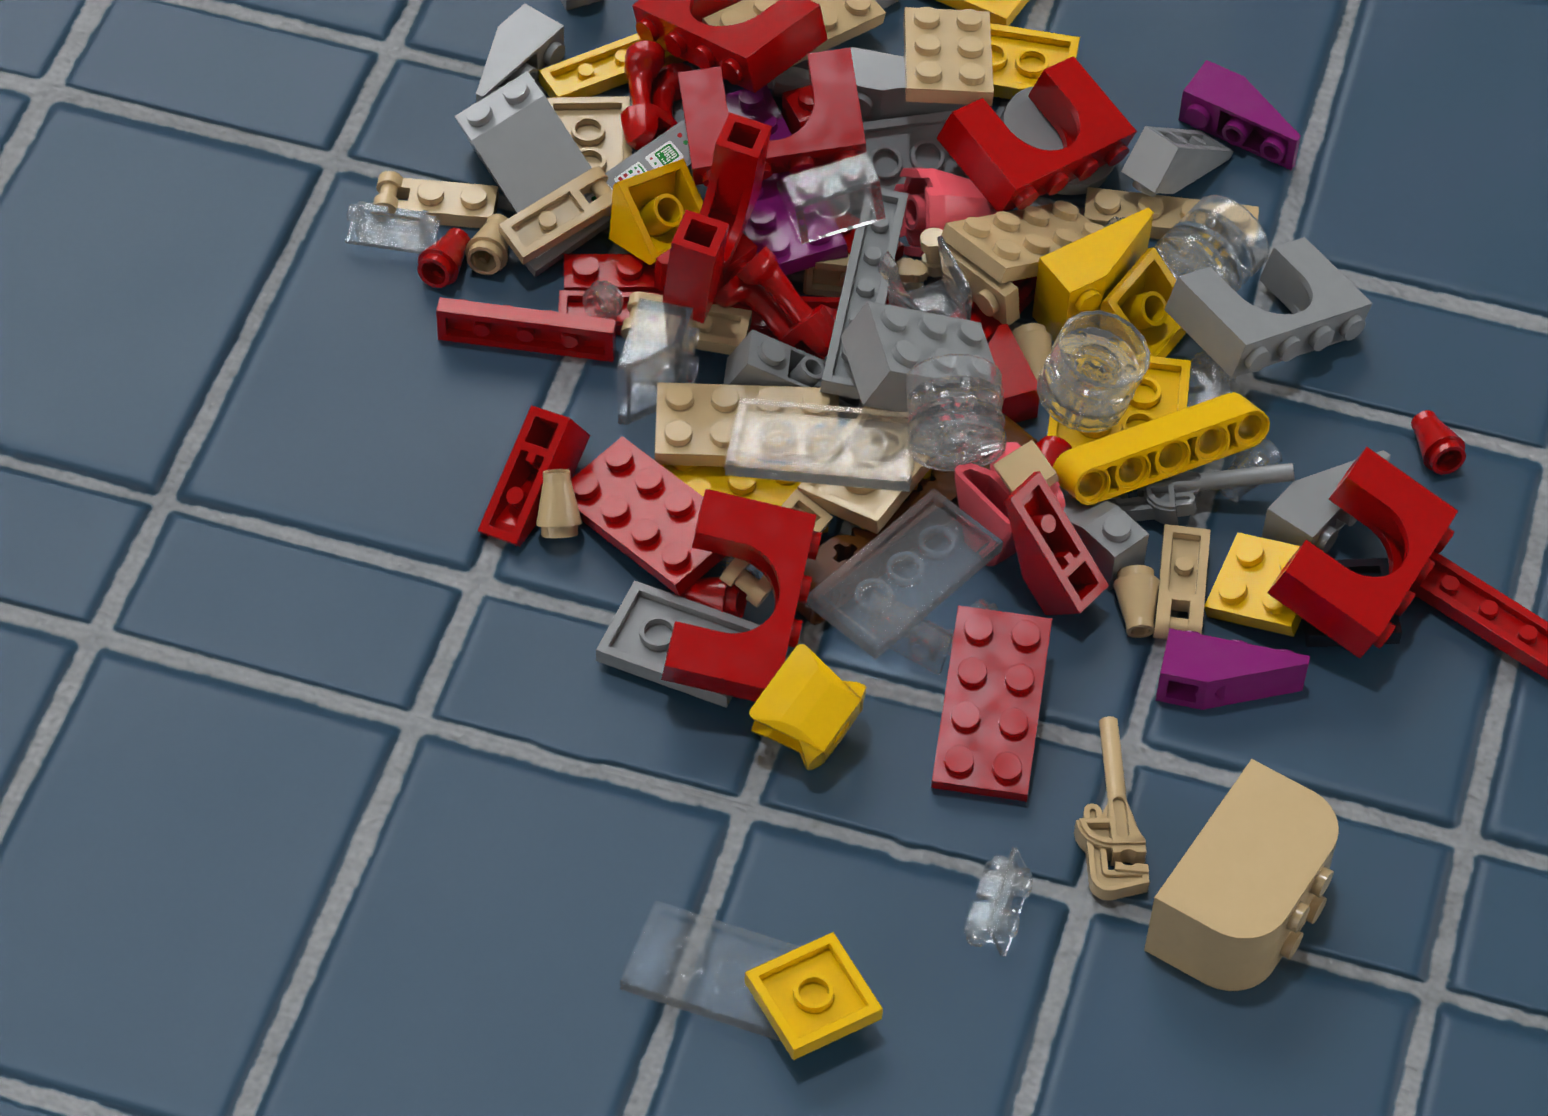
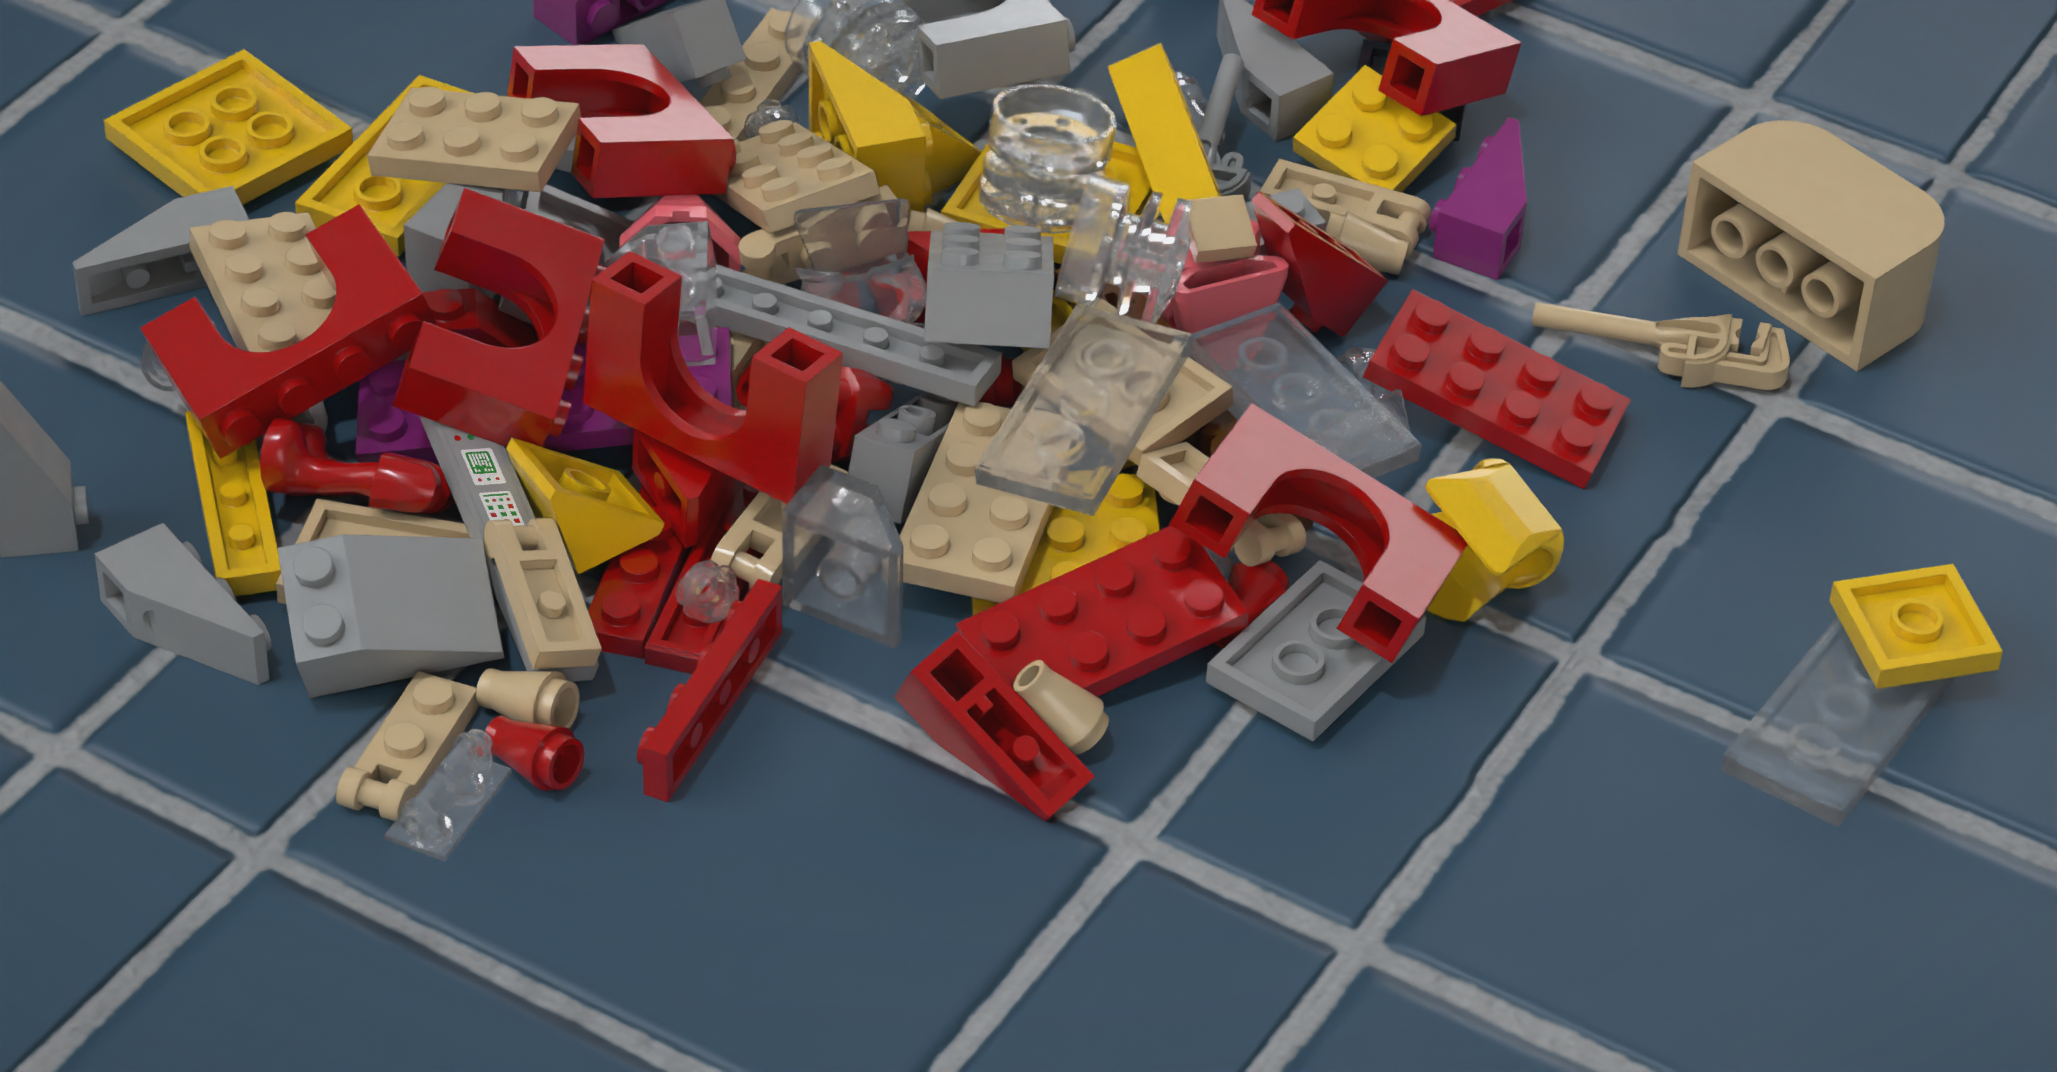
camera: 75 degrees left, 10 degrees down
(1006, 885) = (1809, 464): clear hinge -> none

